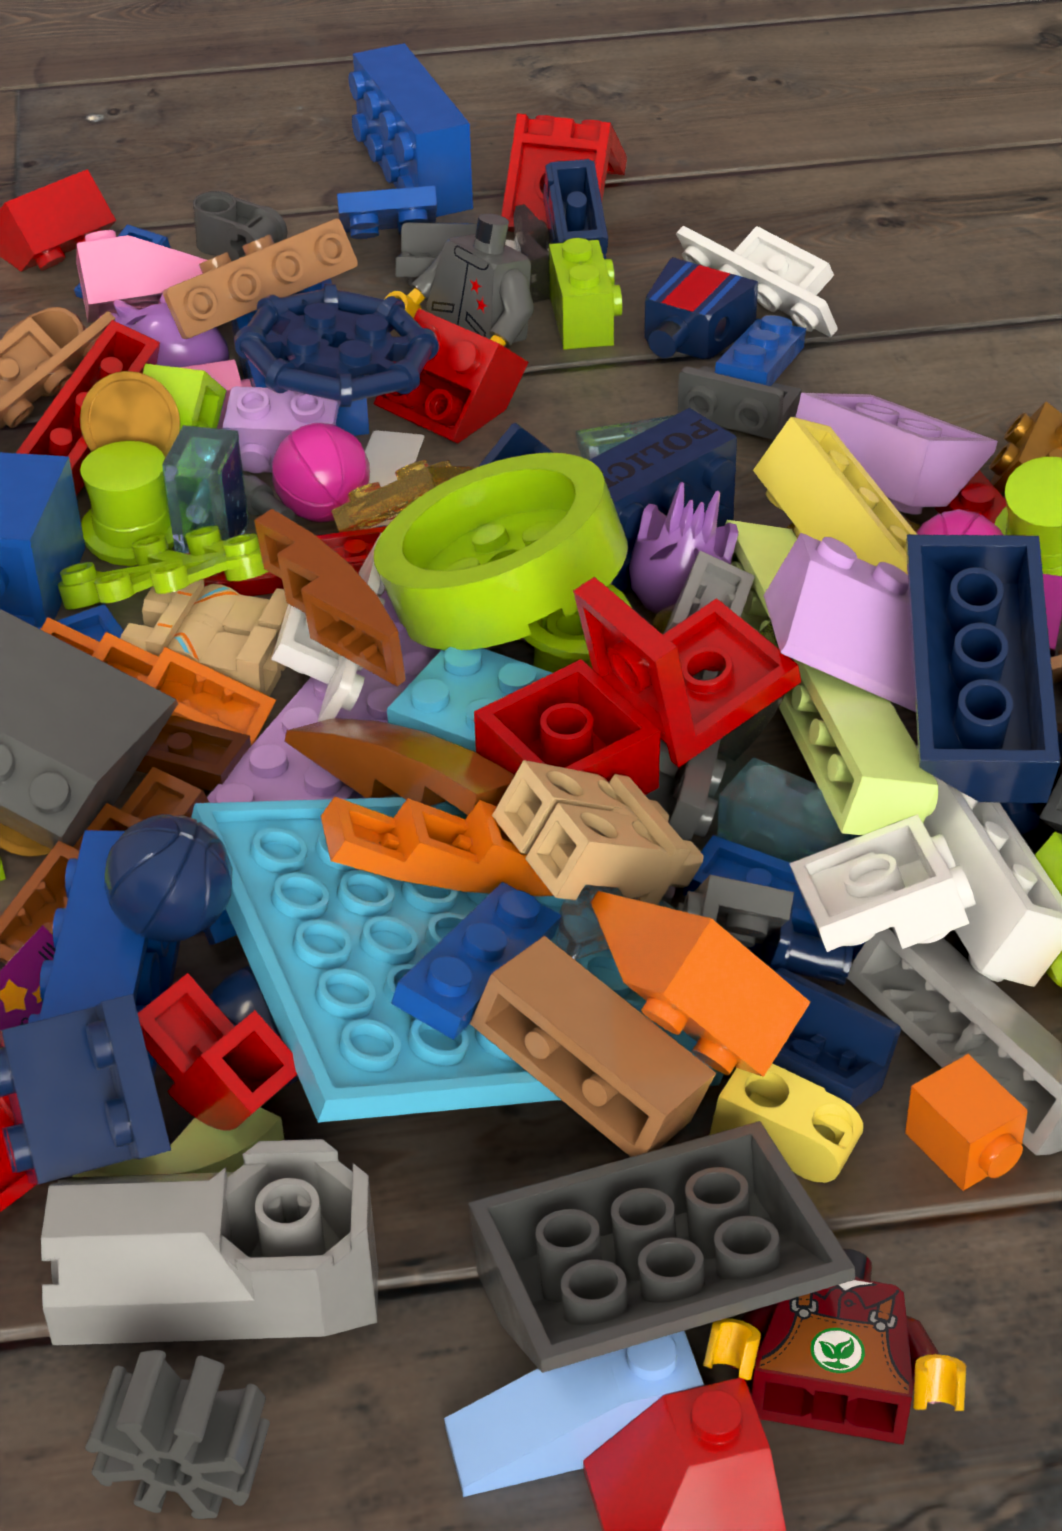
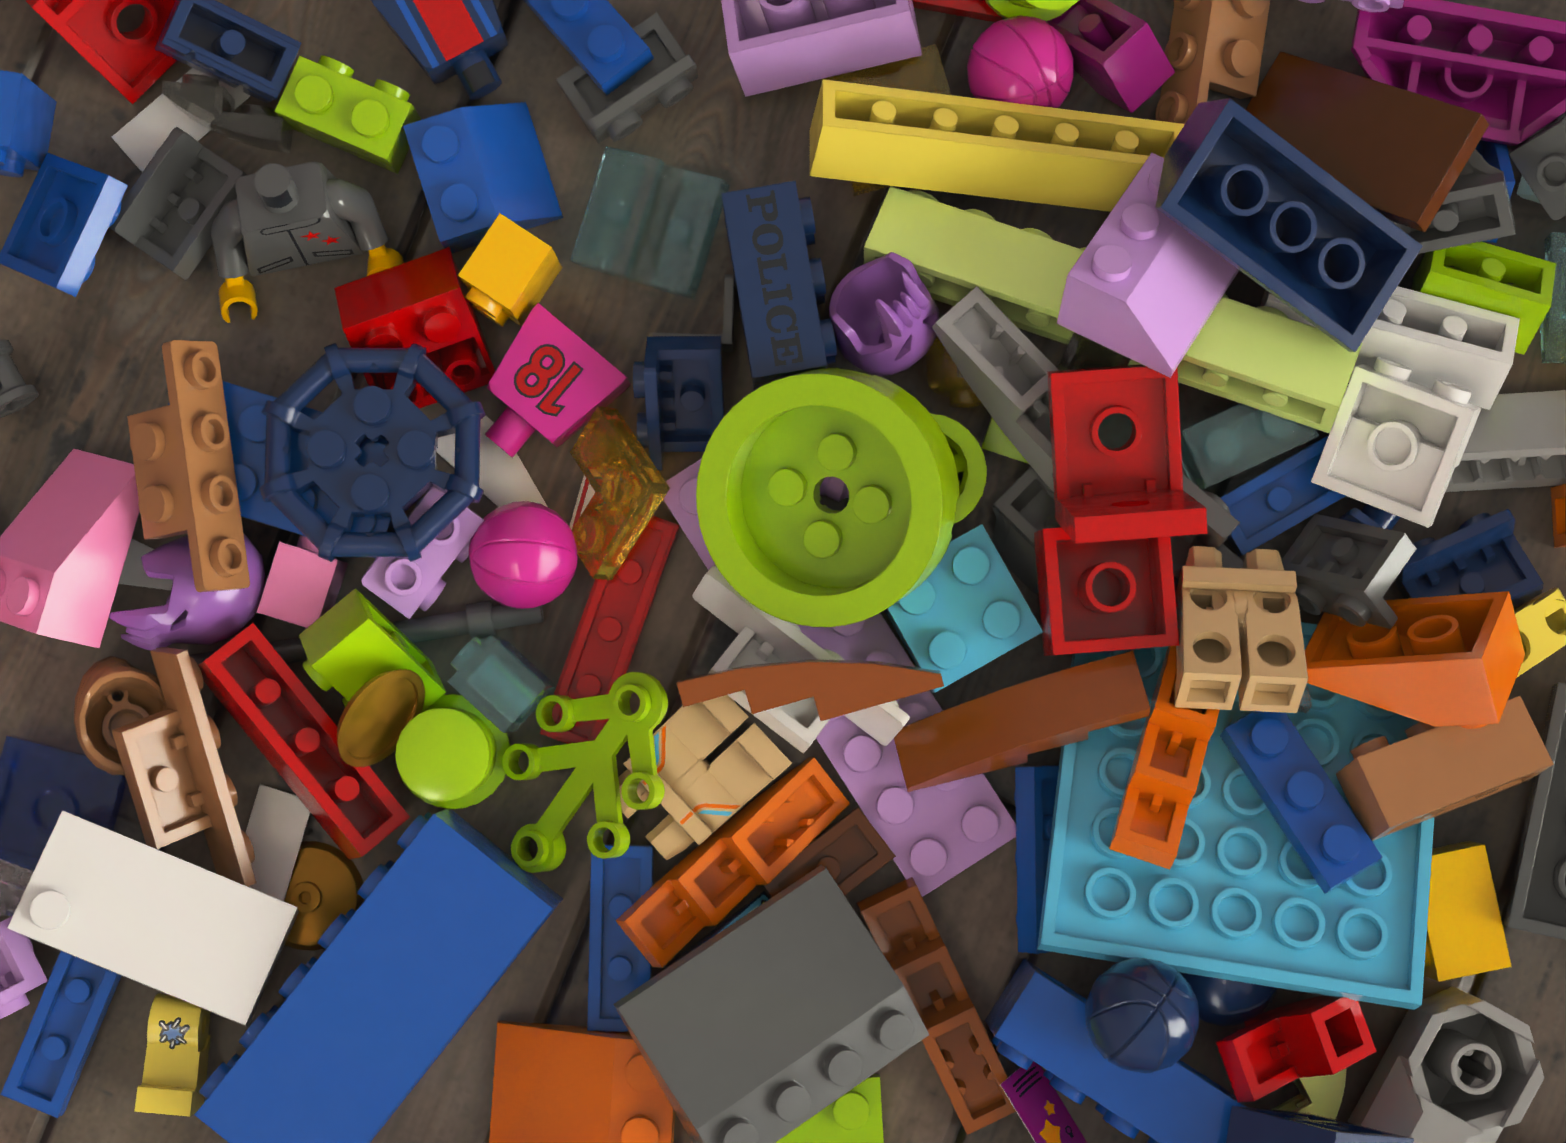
camera: 60 degrees left, 45 degrees up
(424, 1208) = (1463, 915): none -> yellow brick
(460, 433) = (549, 384): none -> dark pink torso
(534, 378) = (509, 272): none -> yellow brick
(596, 362) = (480, 166): none -> blue slope

